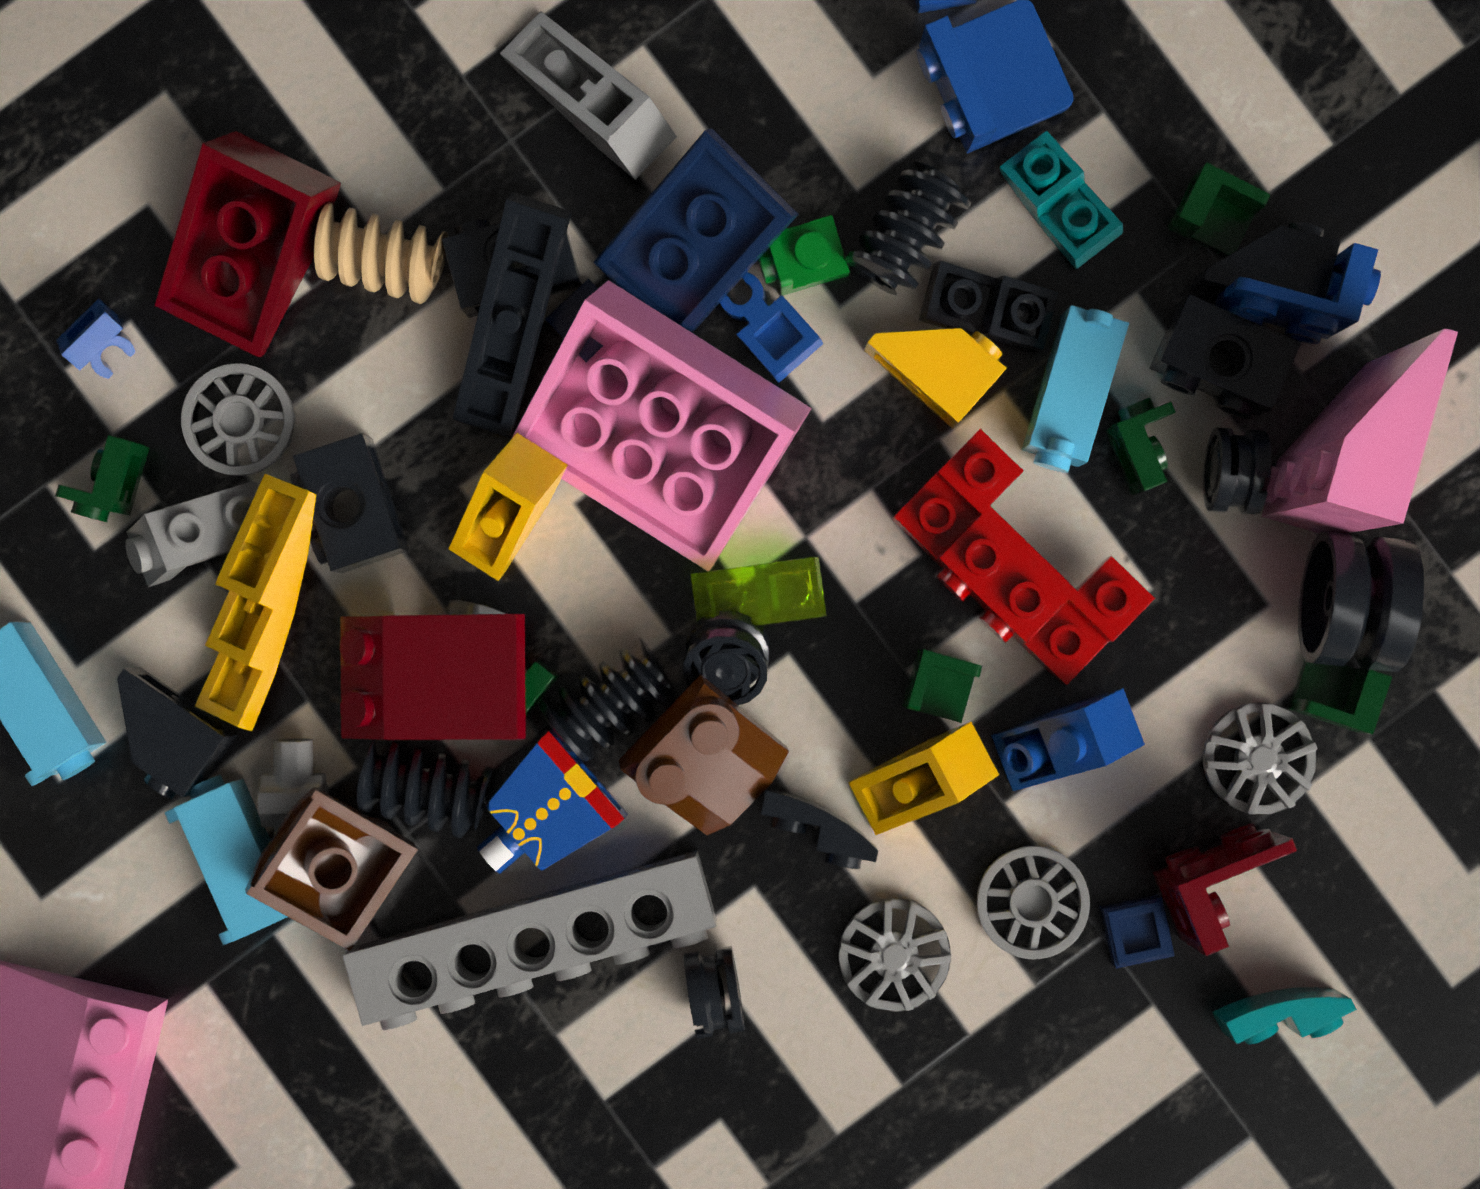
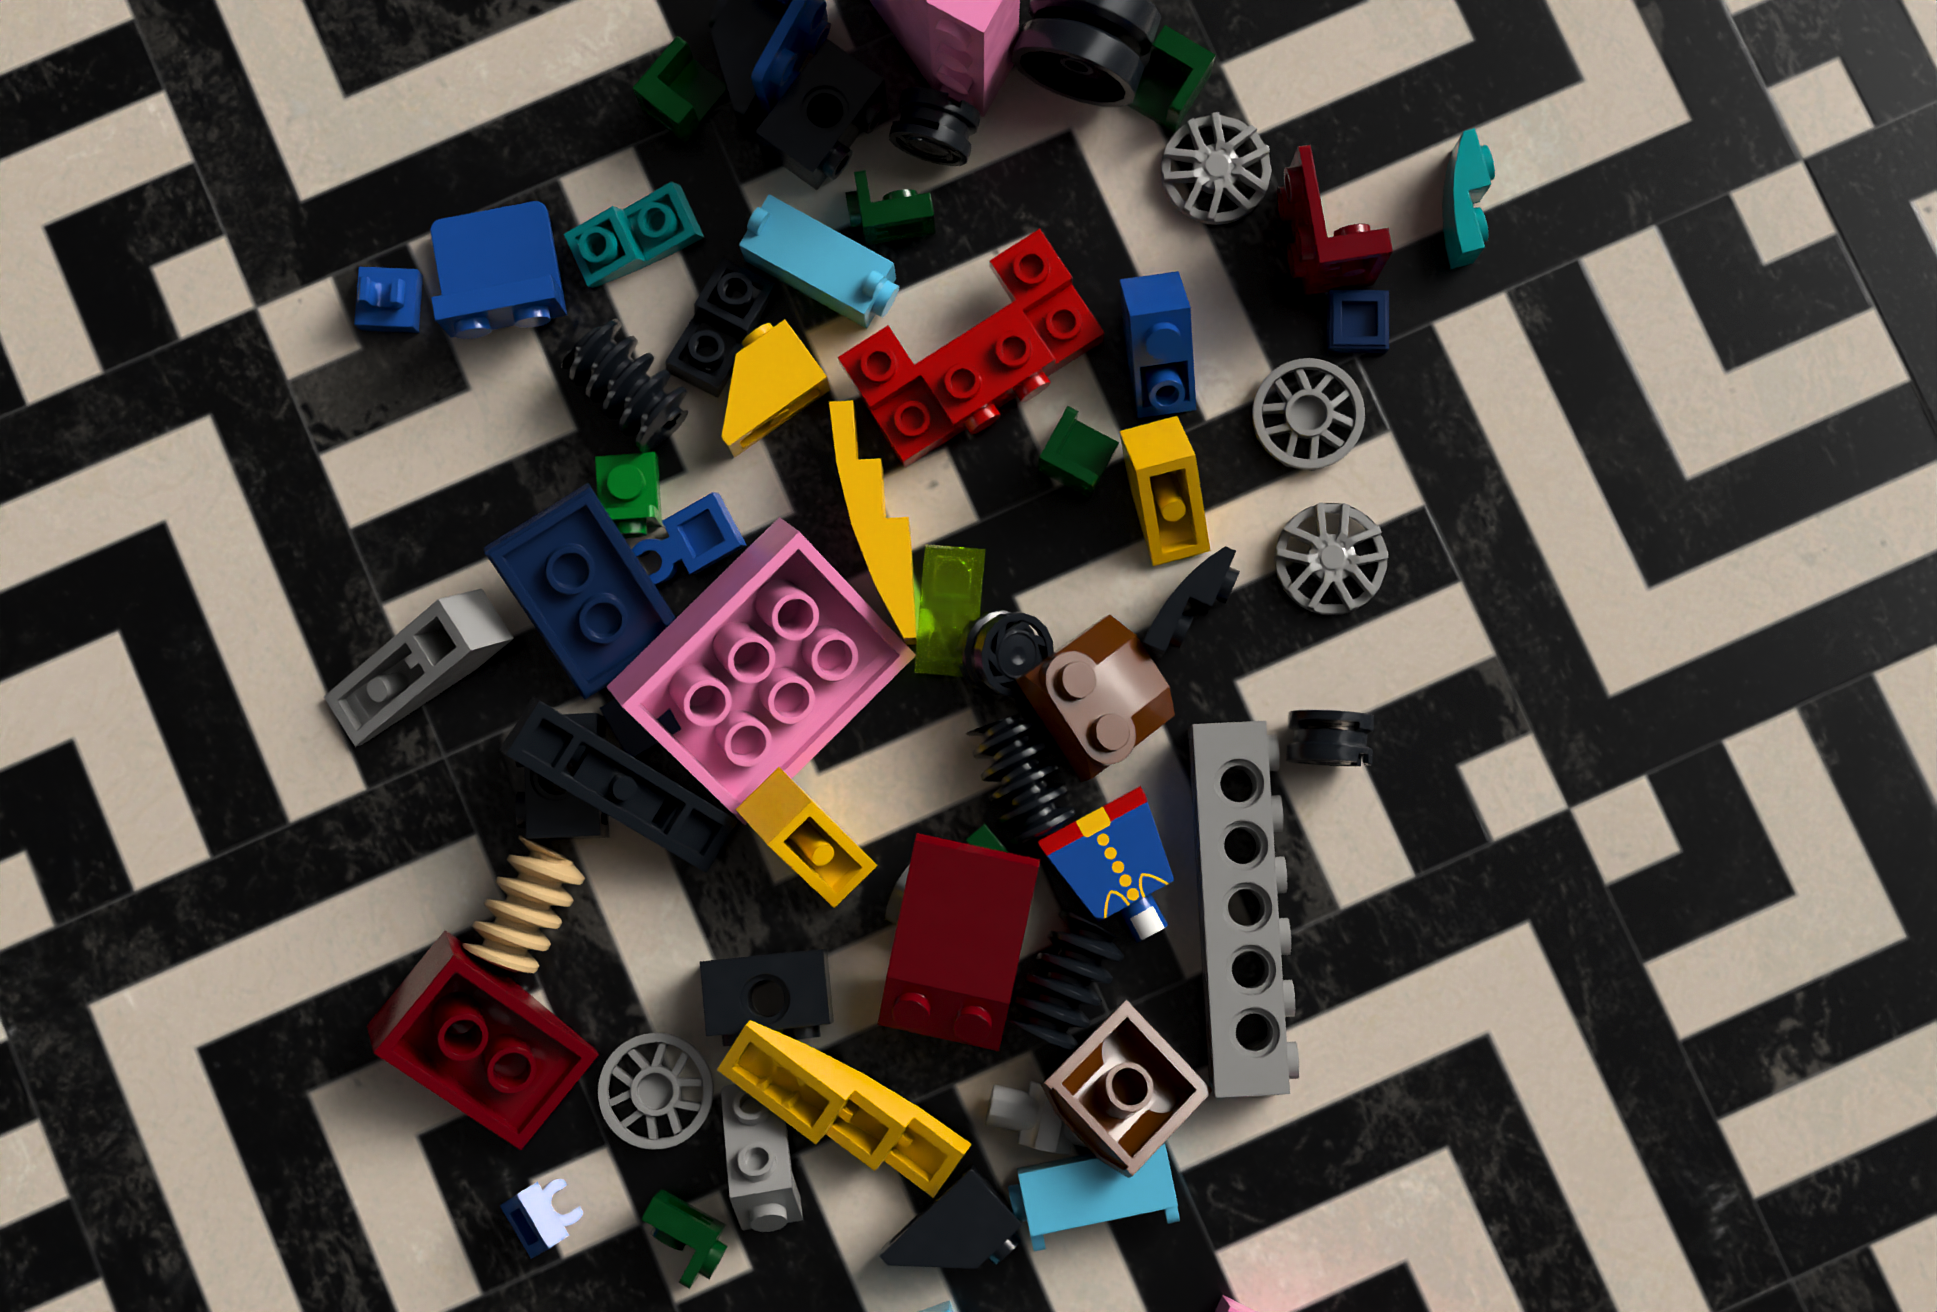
camera: 75 degrees left, 5 degrees down
(808, 514) = (882, 540): none -> yellow slope

